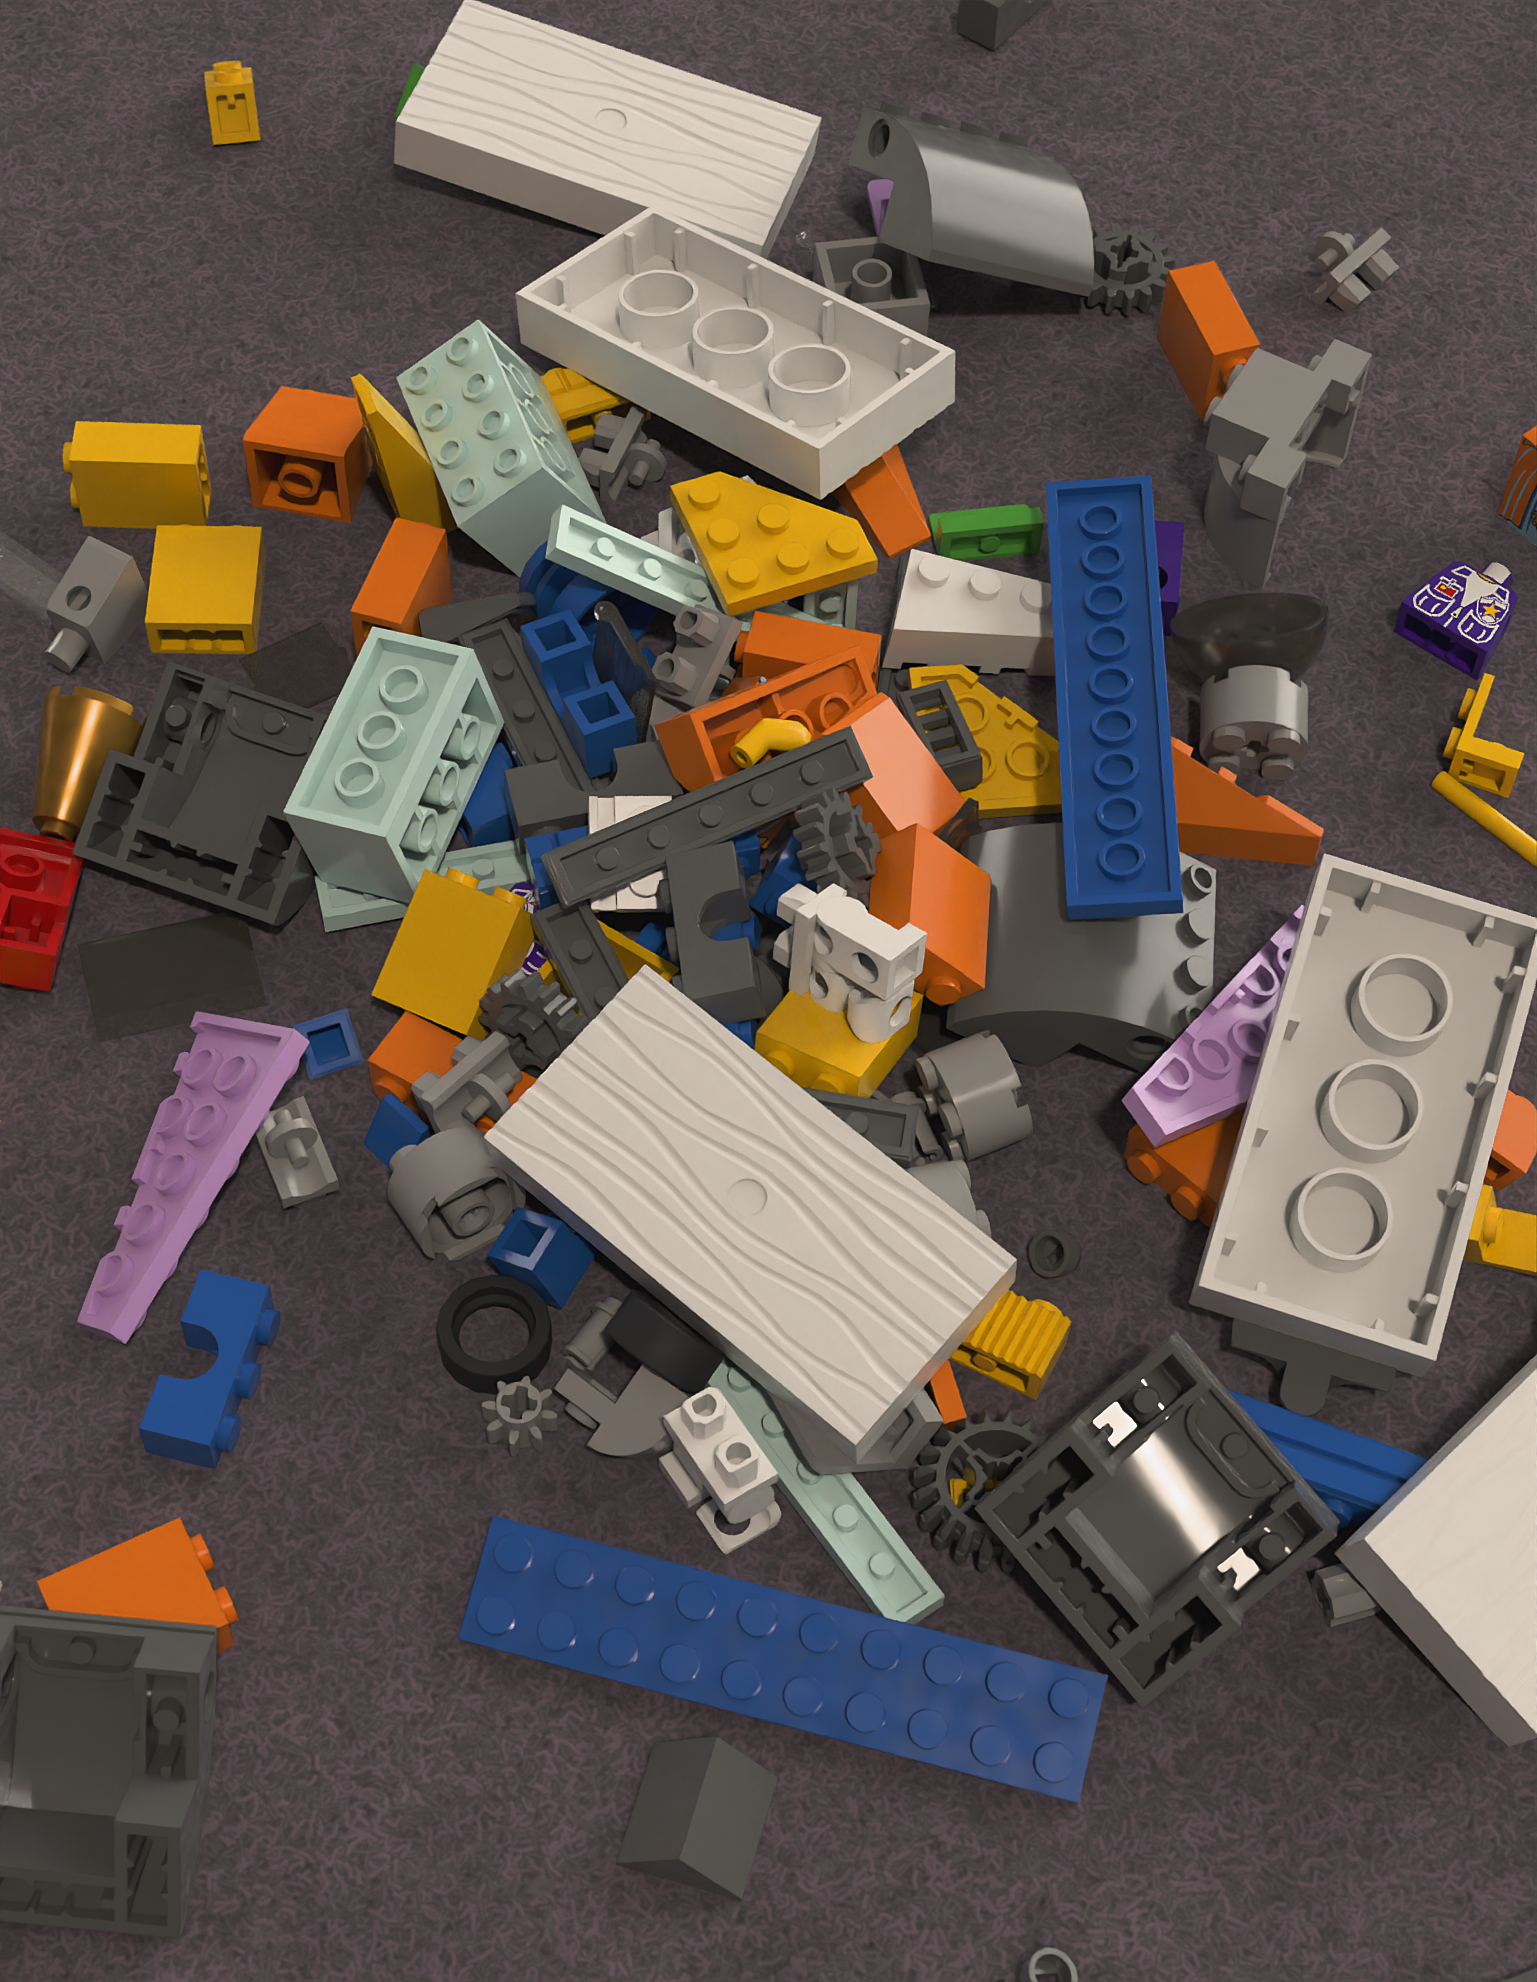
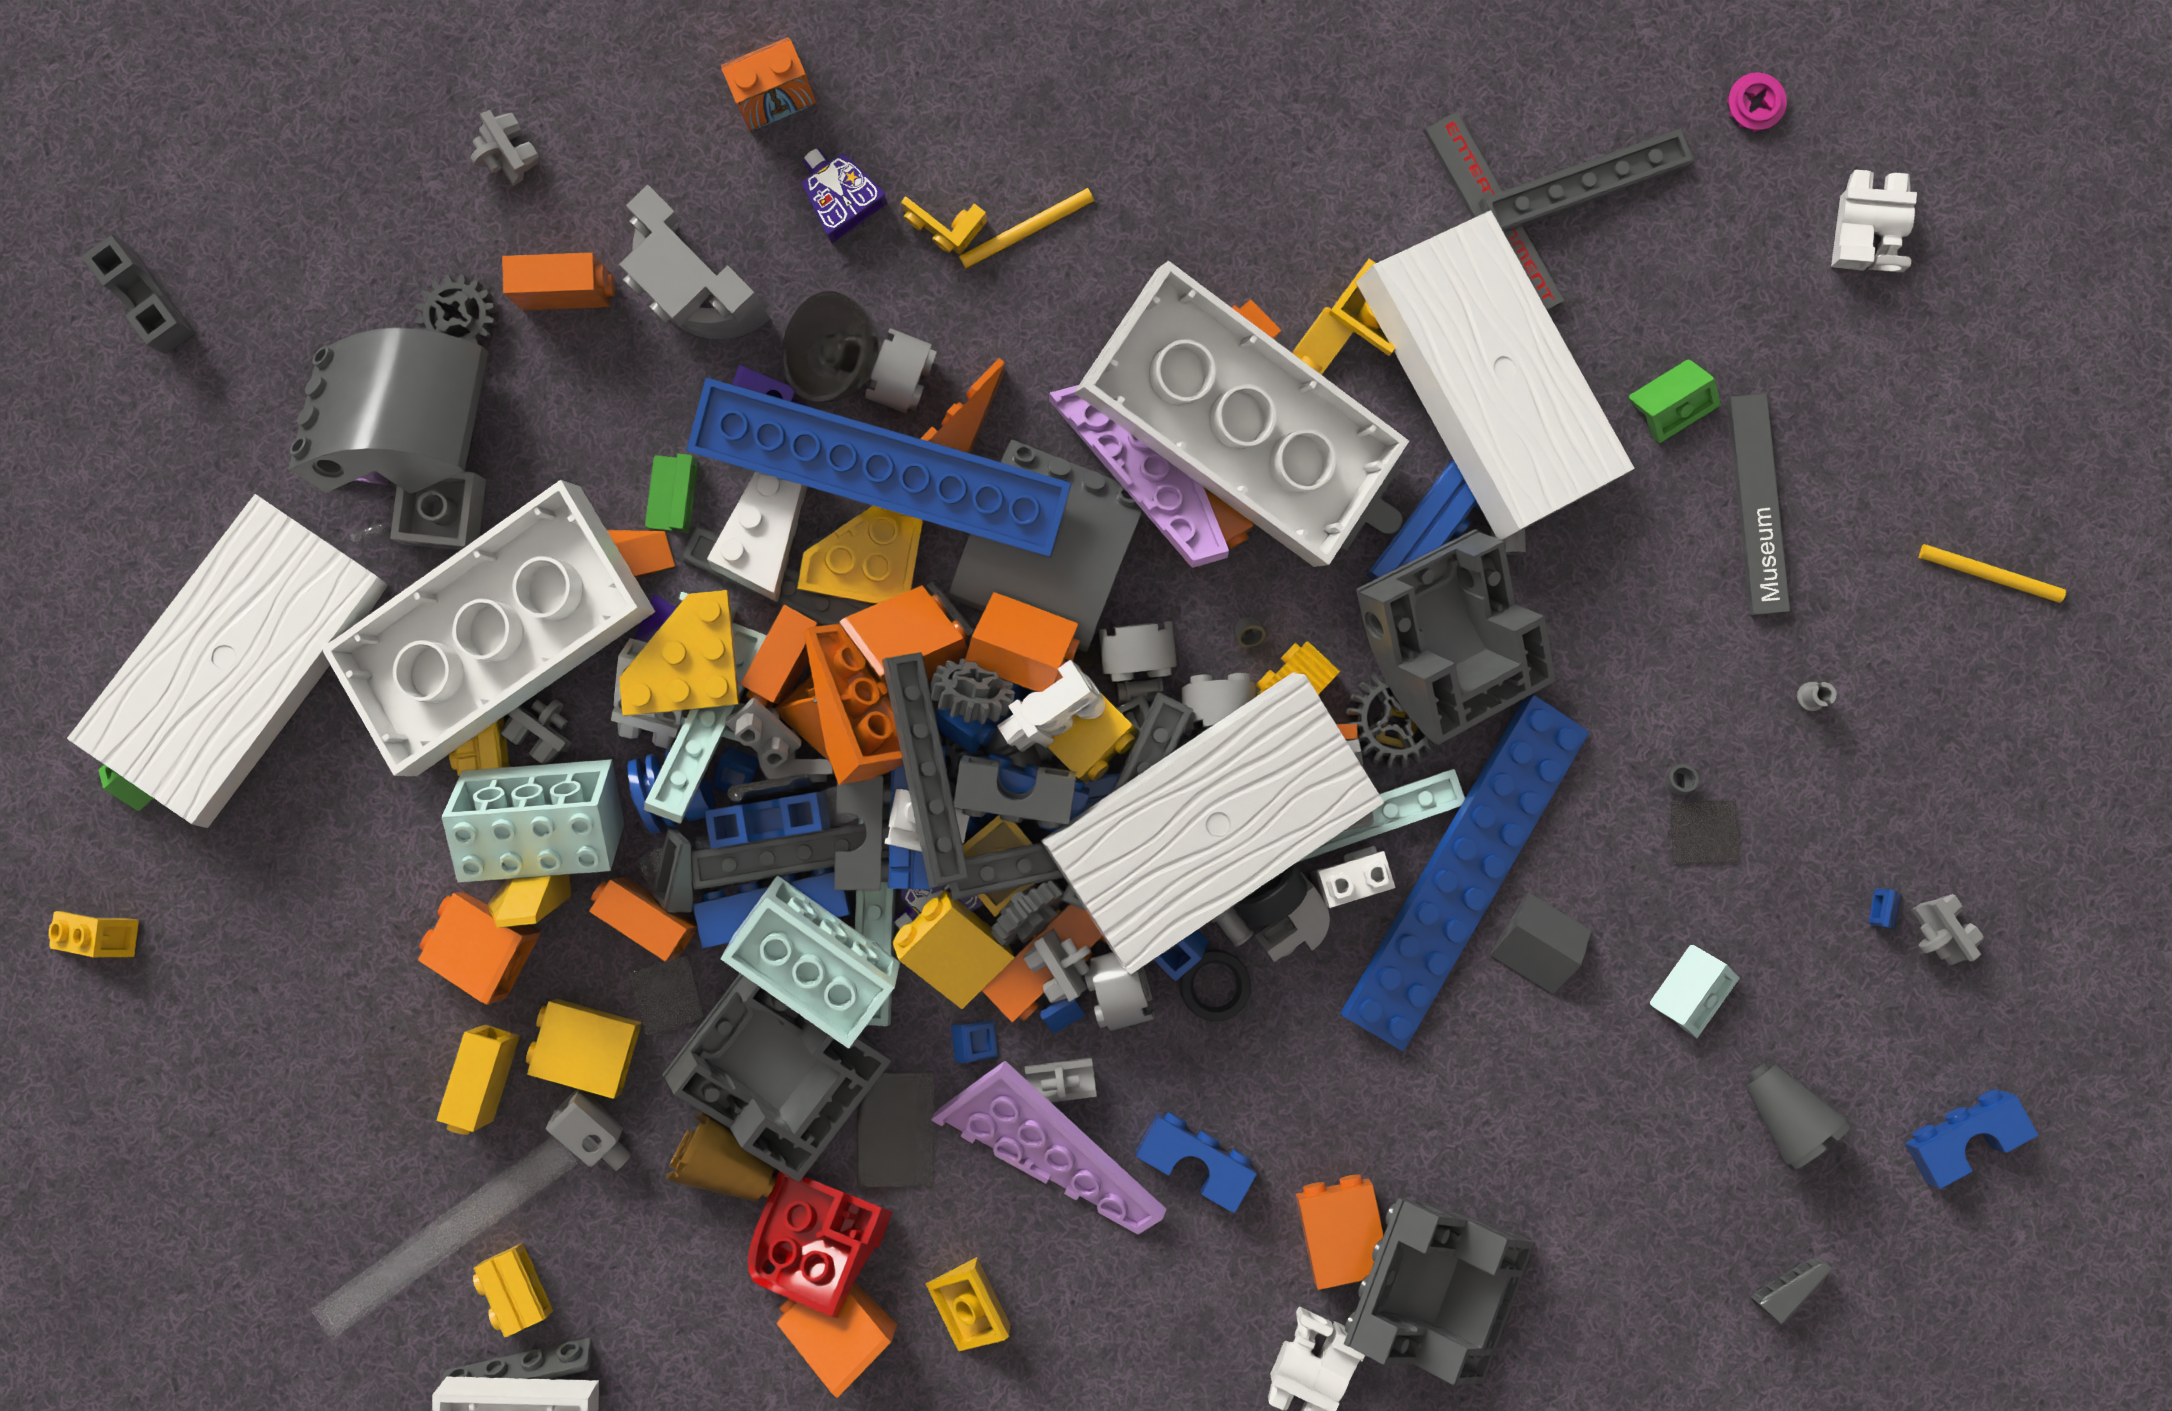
camera: 75 degrees left, 30 degrees up
(535, 1419) = (1272, 973): light grey gear -> none
(766, 736) = (875, 712): yellow arm -> none
(960, 763) = (824, 584): dark grey slope -> none

